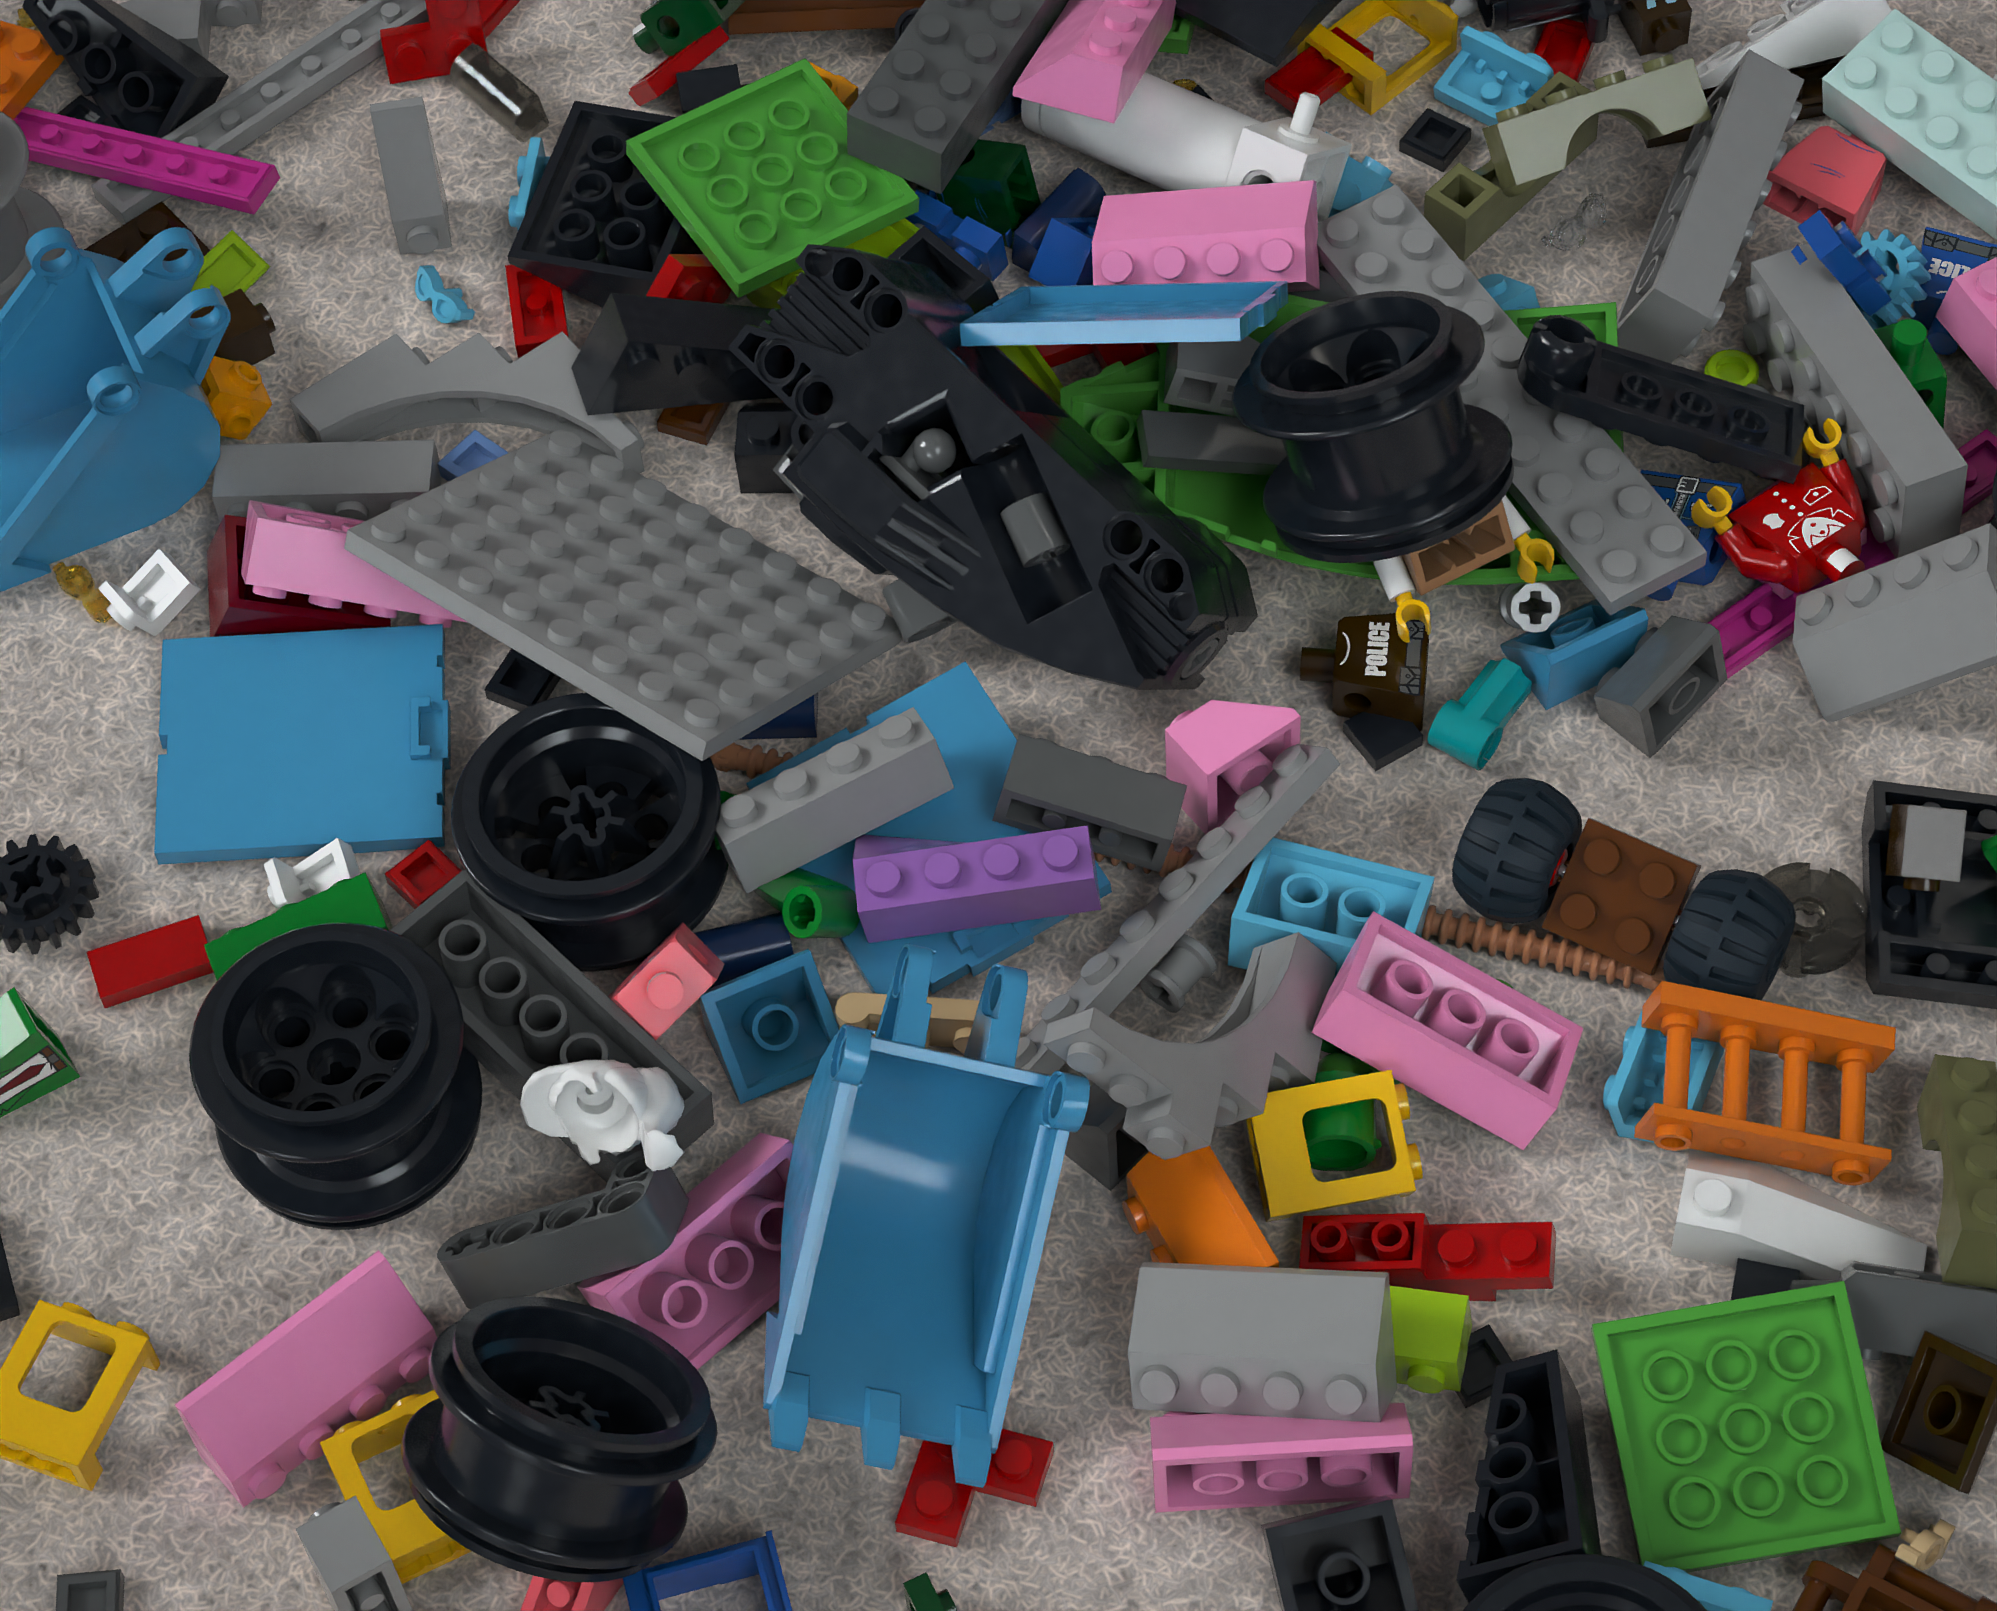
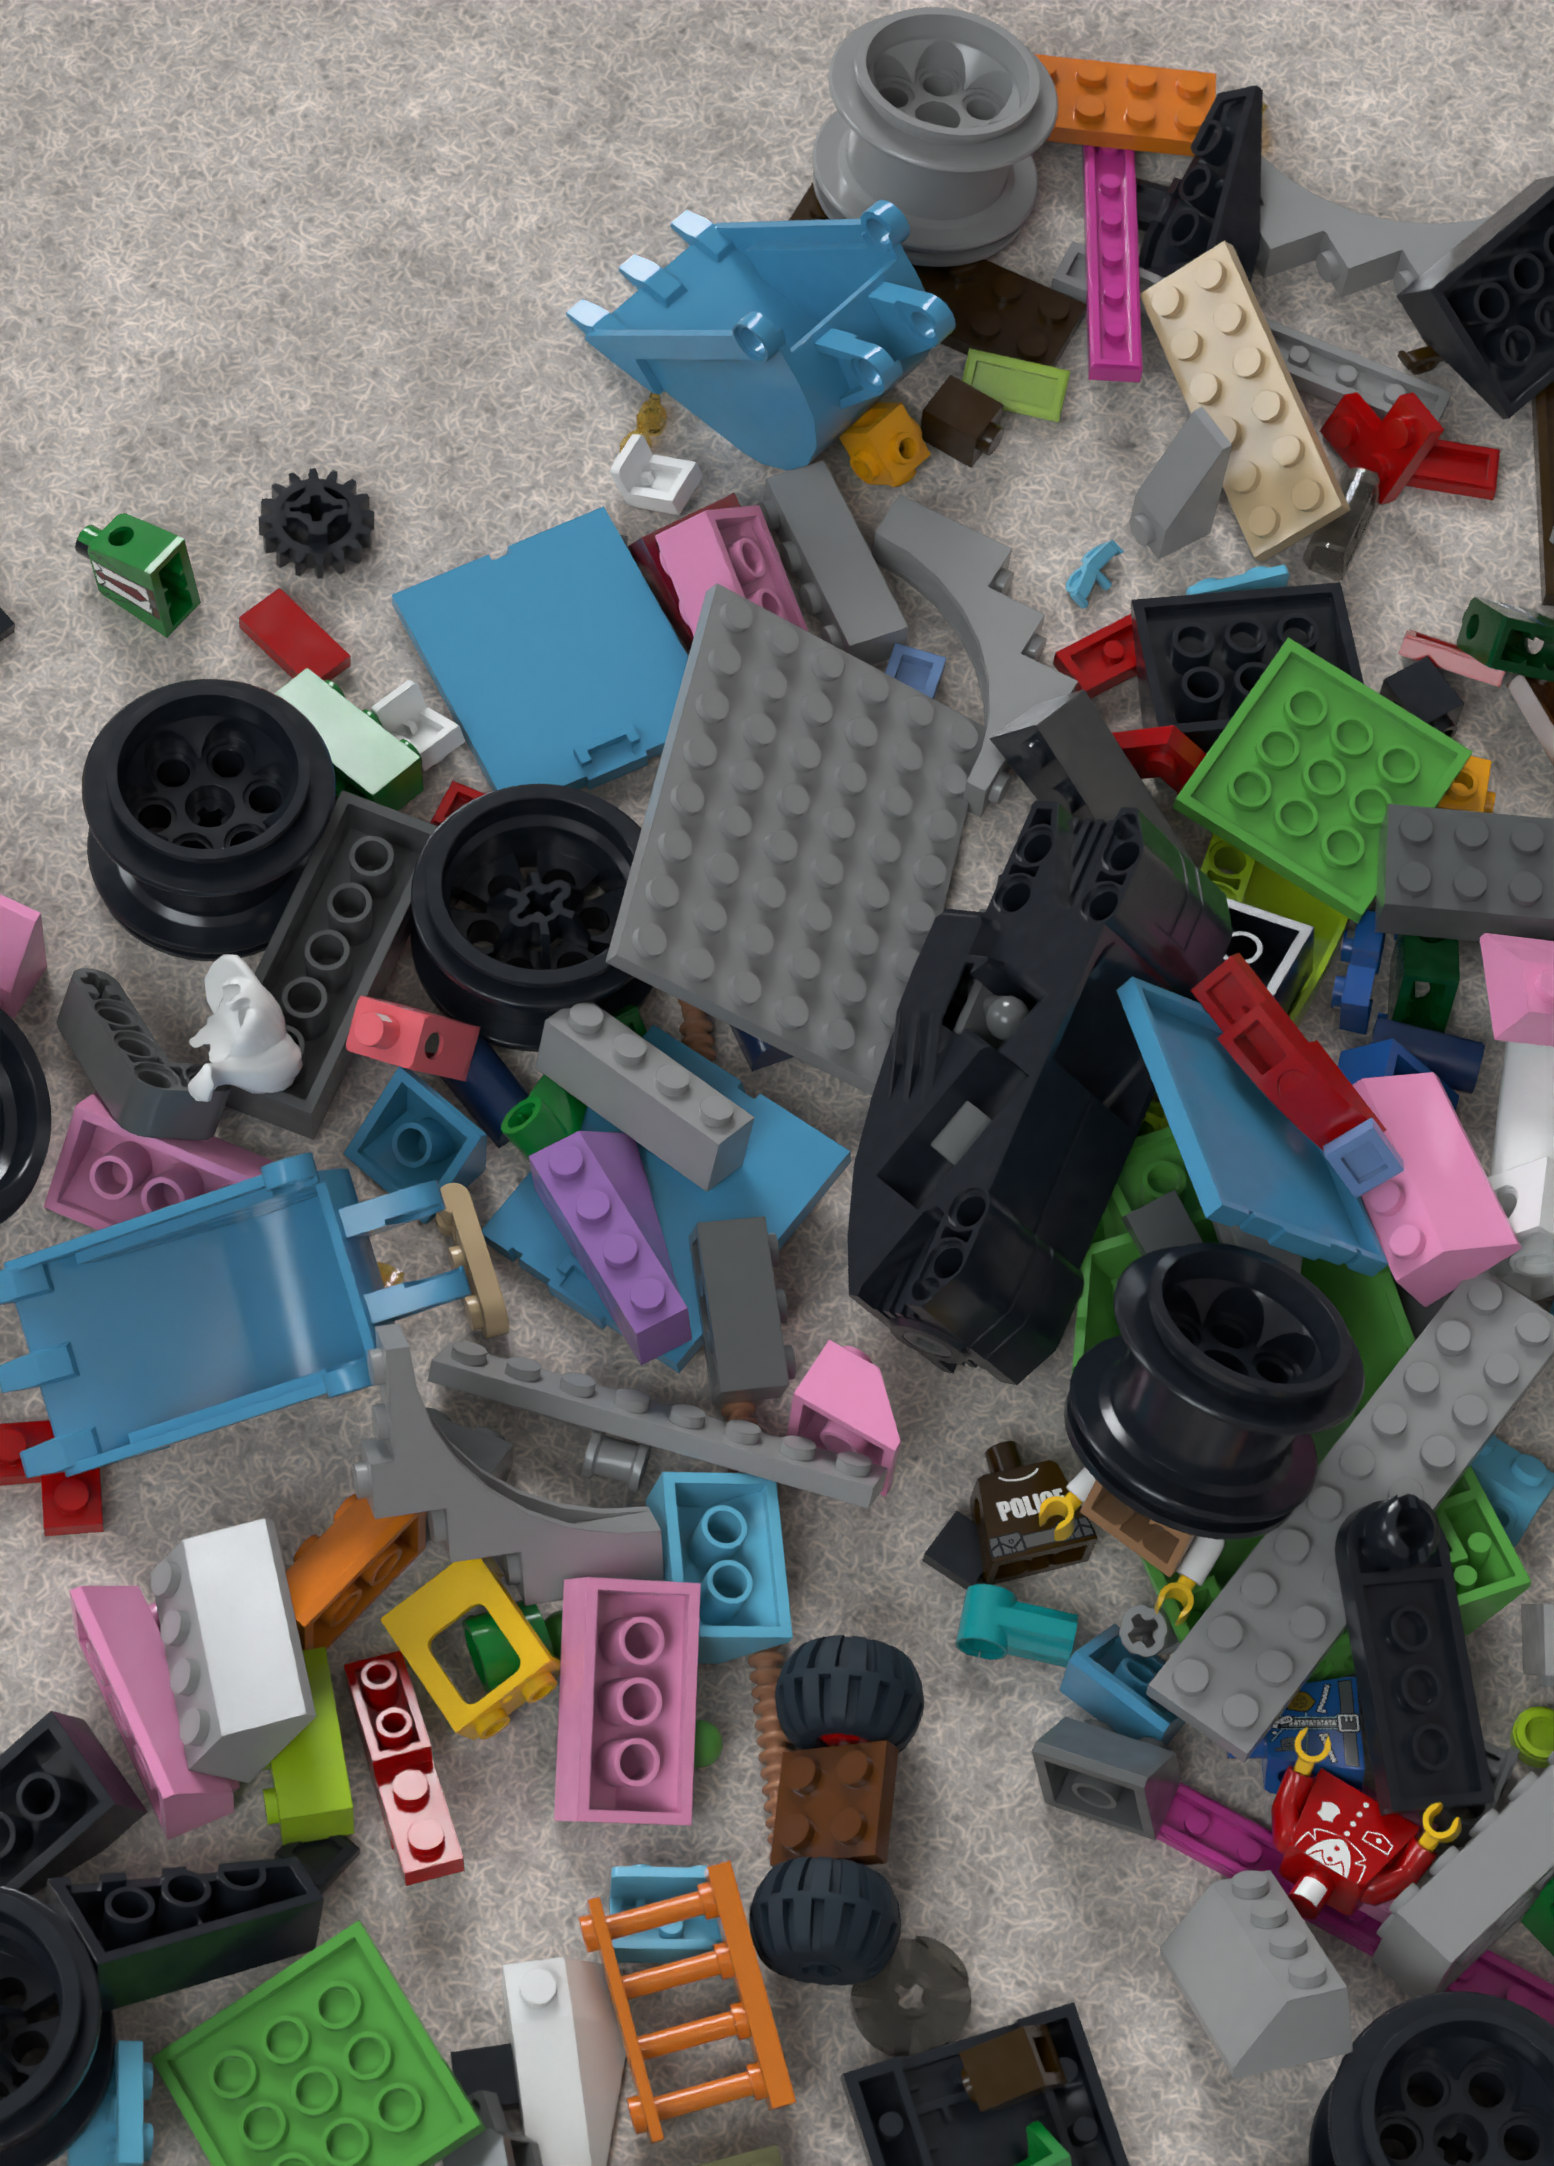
camera: 55 degrees right, 5 degrees up
(322, 105) = (1236, 372): none -> tan plate
(1066, 268) = (1278, 1057): none -> red slope
(1186, 252) = (1363, 1158): none -> medium blue plate

